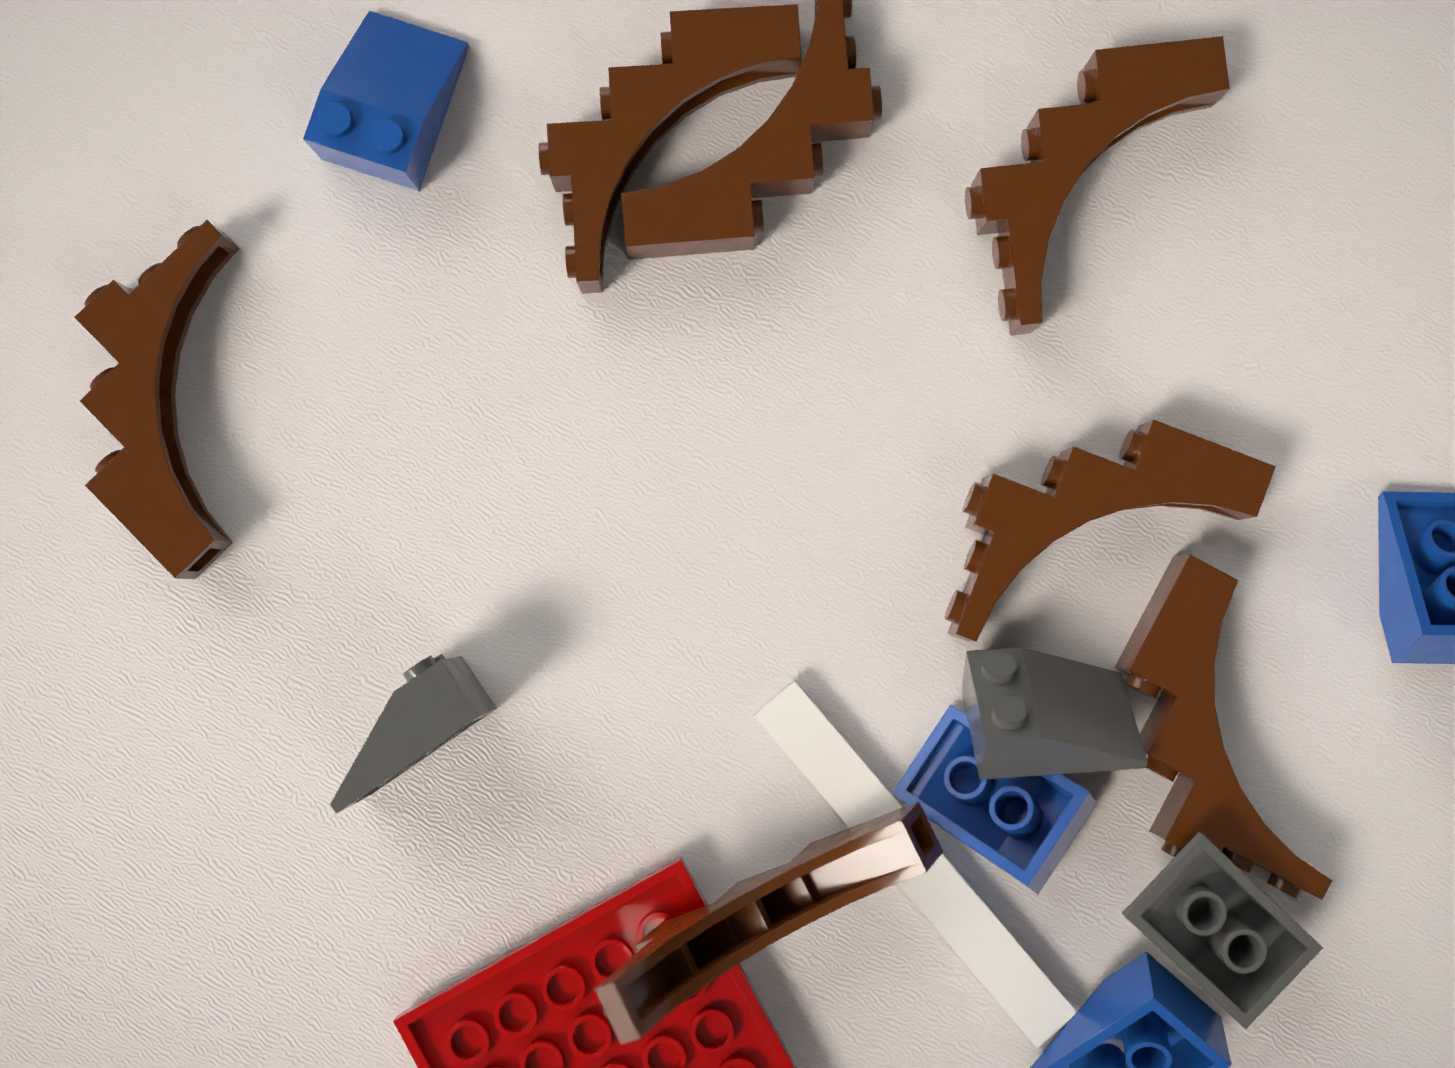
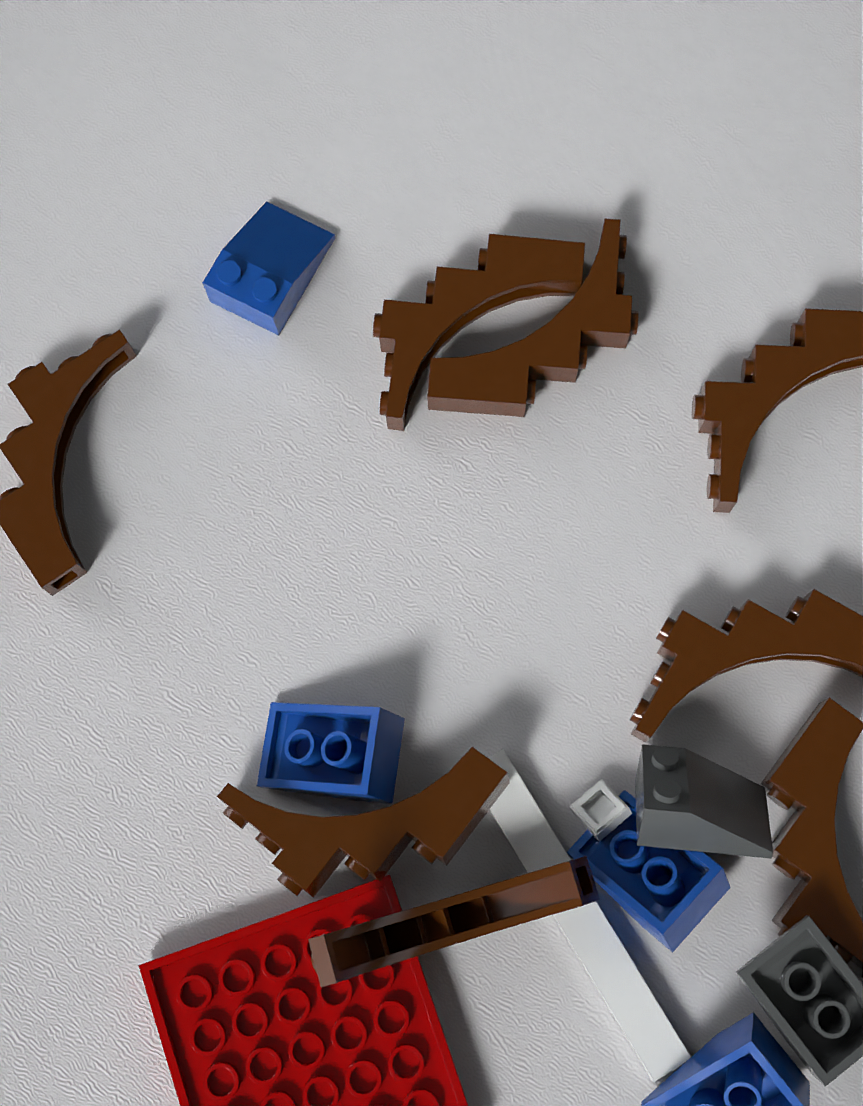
camera: 15 degrees right, 10 degrees down
(419, 718) = (203, 729): dark grey slope -> none
(581, 846) = (315, 846): none -> reddish brown arch
(582, 721) = (332, 751): none -> blue slope
(925, 735) = (600, 810): none -> white tile

